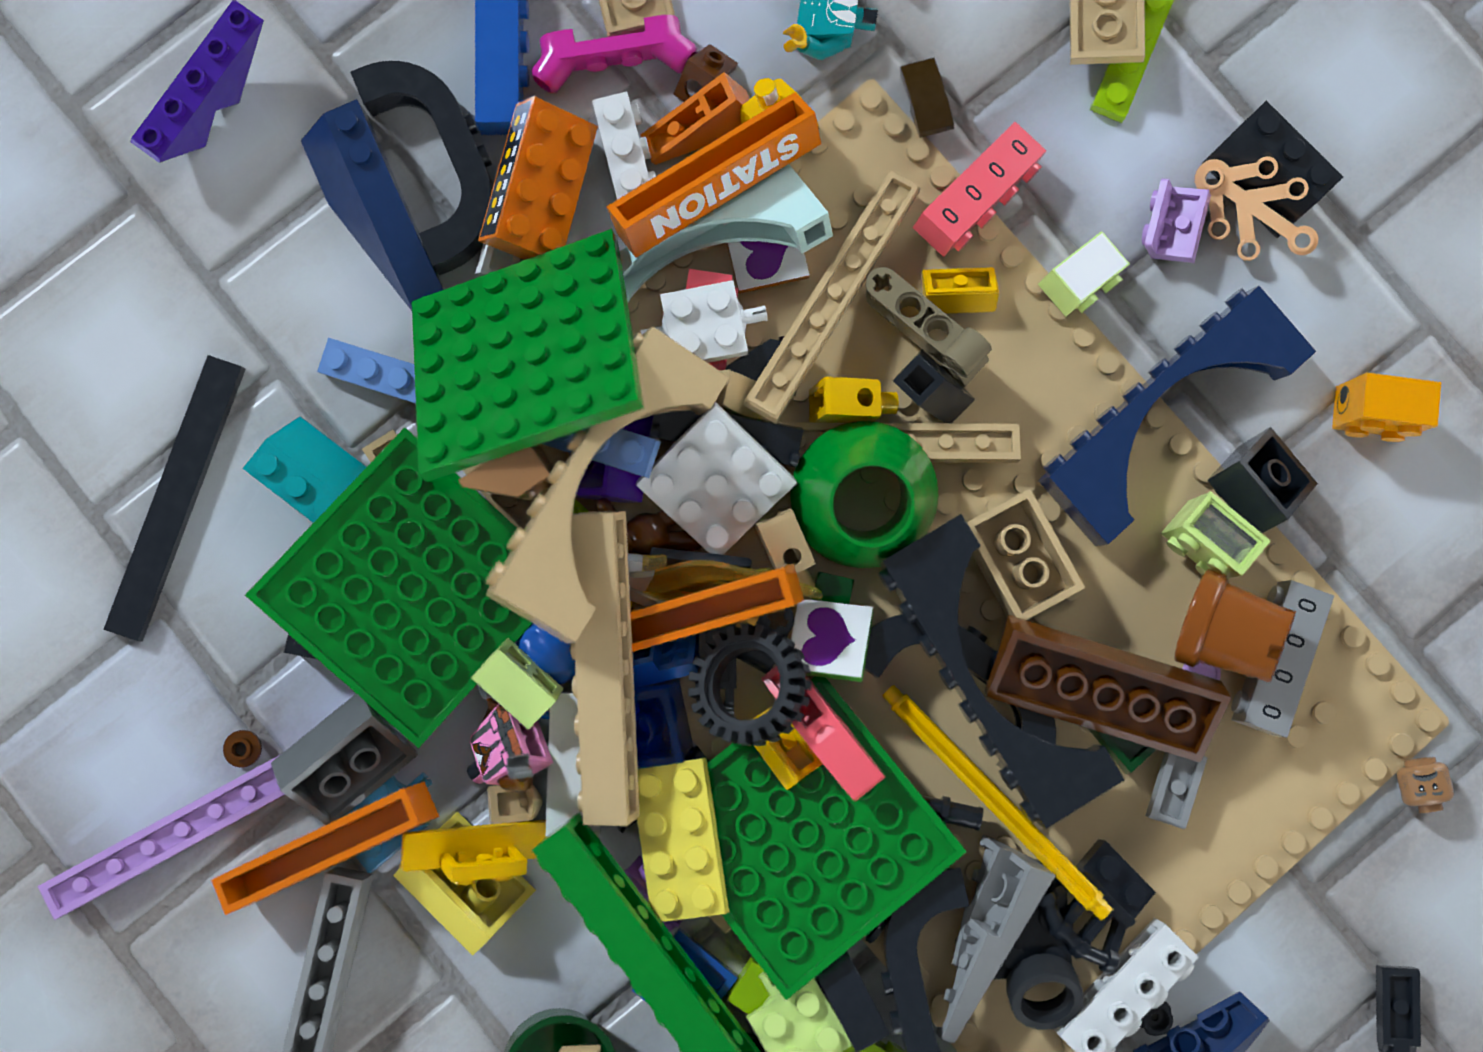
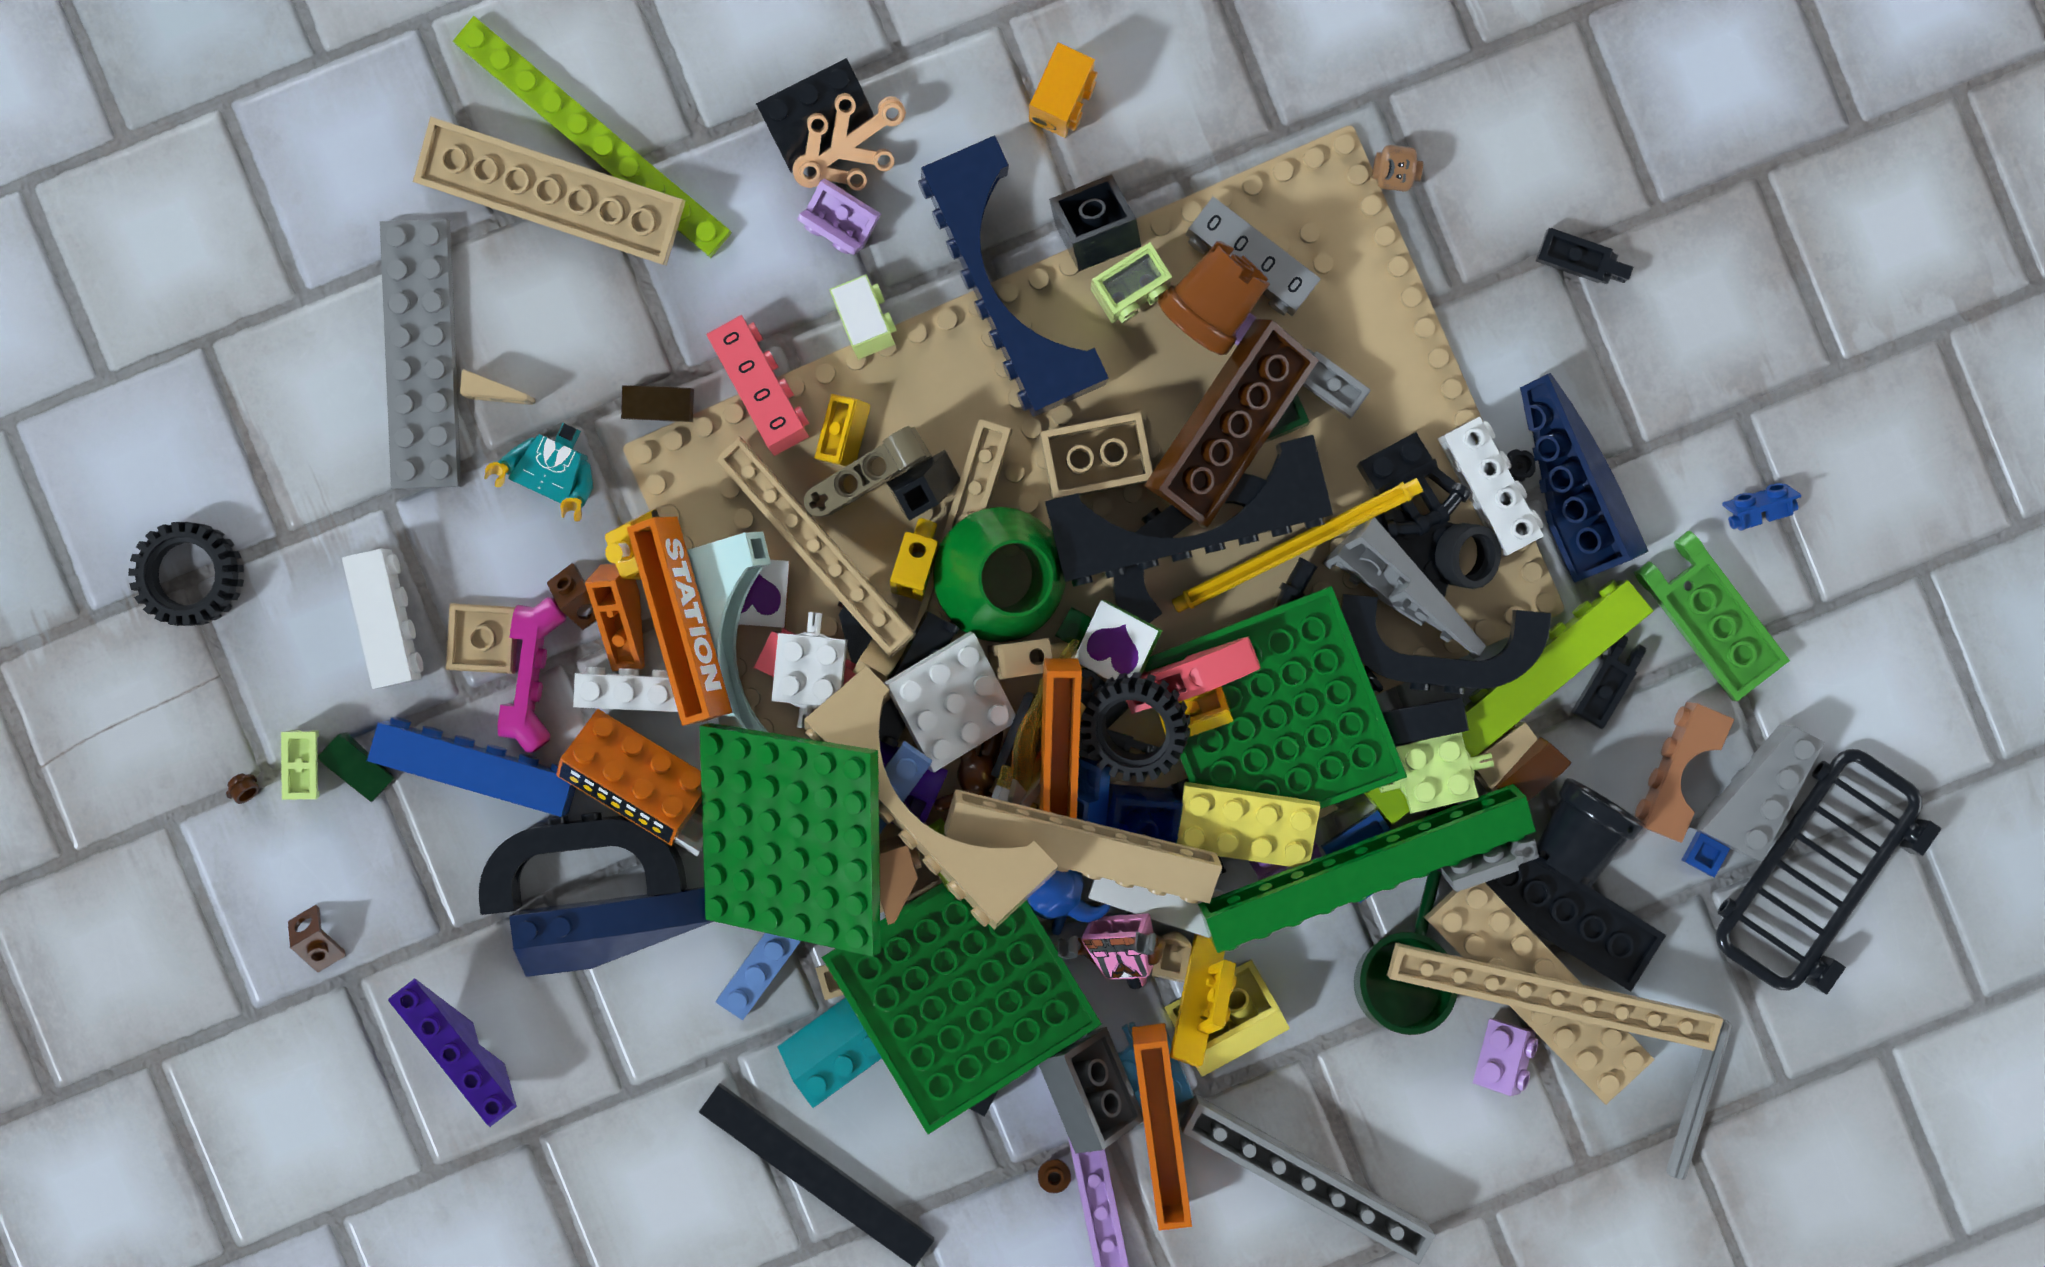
camera: 70 degrees left, 5 degrees up
(517, 683) = (1073, 923): yellowish green hinge -> none

